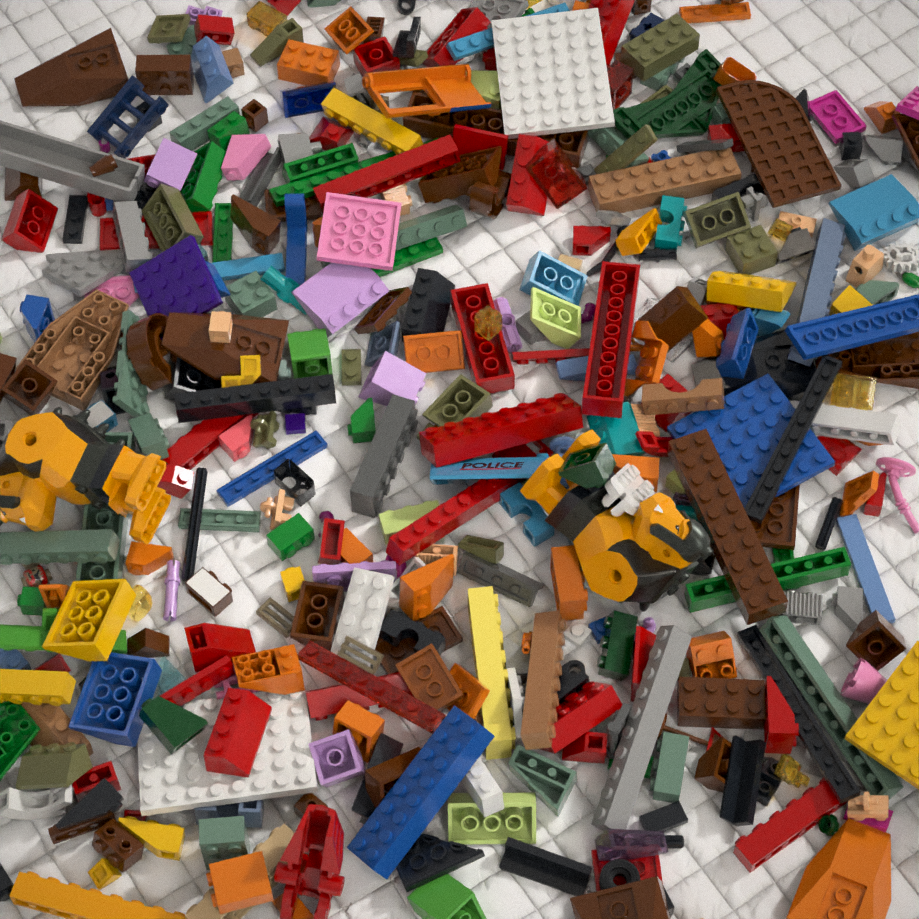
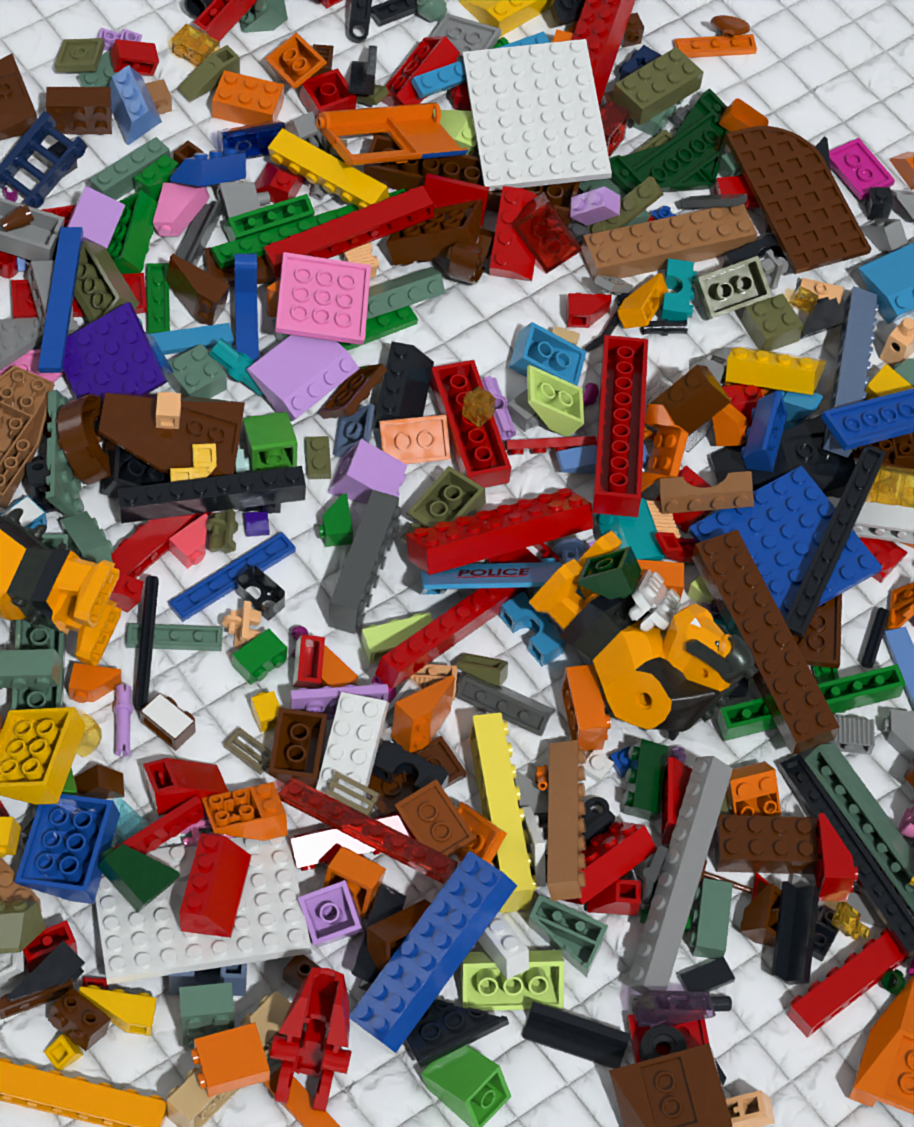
camera: 10 degrees left, 0 degrees up
(137, 234) = (60, 300): none -> blue tile
(272, 121) = (211, 168): none -> blue slope
(599, 150) = (595, 206): none -> lavender brick

